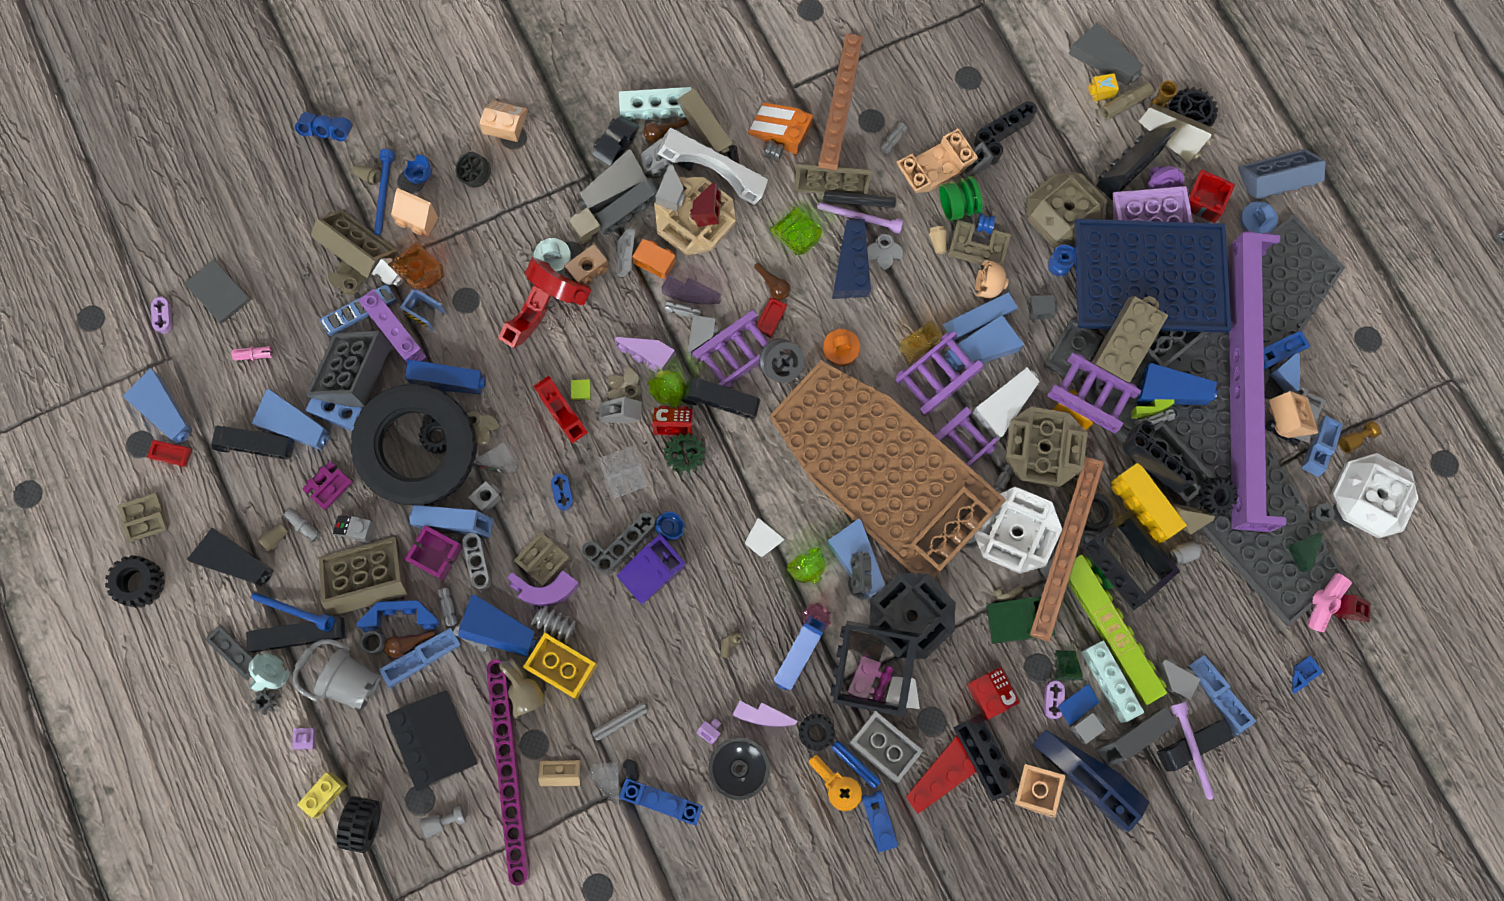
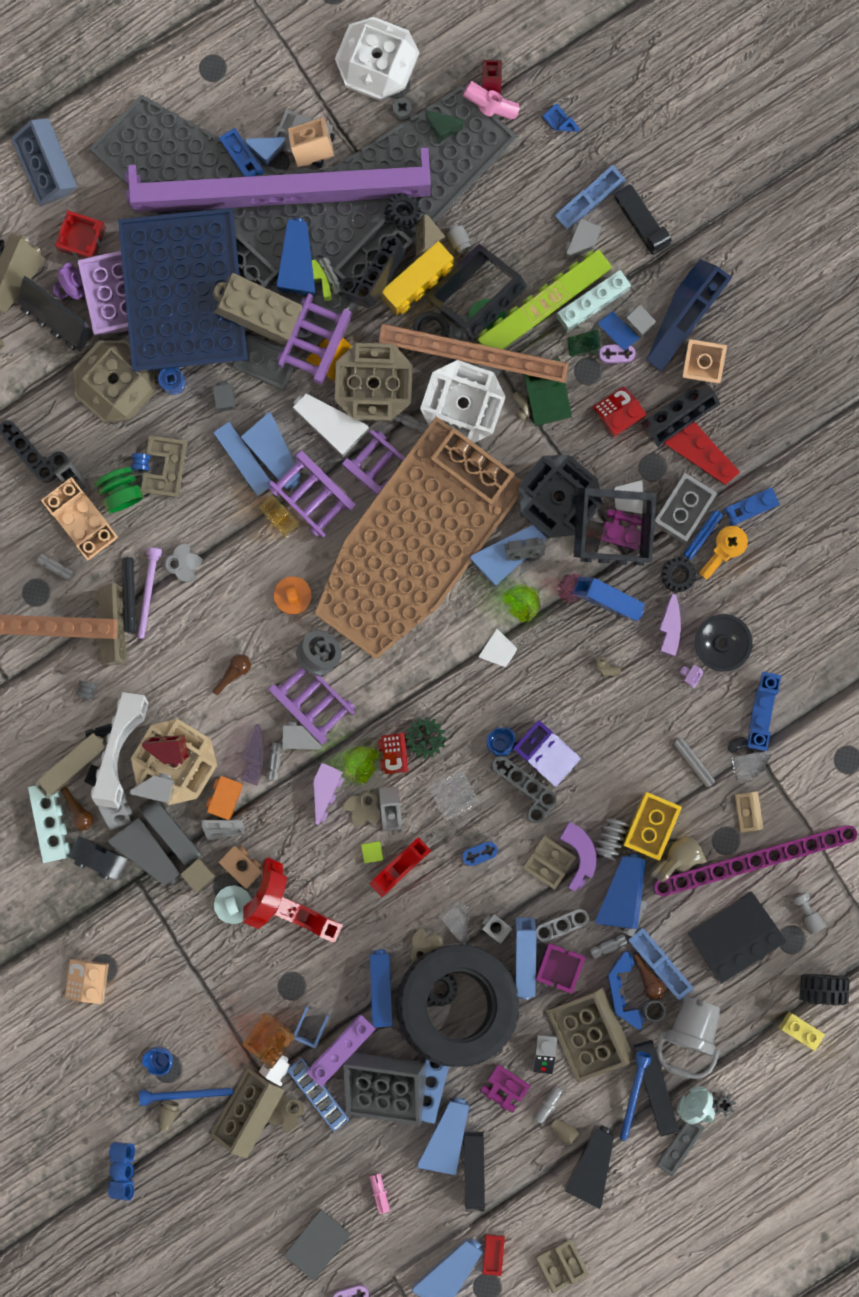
camera: 95 degrees left, 10 degrees up
(121, 574) = (632, 1272): black tyre -> none
(304, 738) = (751, 1060): lavender tile -> none
(413, 213) = (208, 1055): light nougat slope -> none
(473, 170) = (150, 1002): pearl dark grey wheel -> none
(720, 397) = (365, 708): black beam -> none
(771, 317) = (269, 670): red tile -> none
(782, 125) = (57, 687): orange slope -> none
(797, 231) = (174, 655): clear neon green slope -> none
(853, 265) = (209, 592): dark blue wedge -> none
(938, 237) = (163, 508): tan cone -> none
(991, 280) = (203, 451): light nougat cylinder -> none
(1136, 737) = (642, 274): dark grey slope -> none
(1181, 712) = (614, 235): lavender piece -> none
(1258, 218) = (97, 183): medium blue tile -> none
(1322, 446) = (333, 110): medium blue slope -> none
(1353, 440) = (323, 80): pearl gold piece -> none

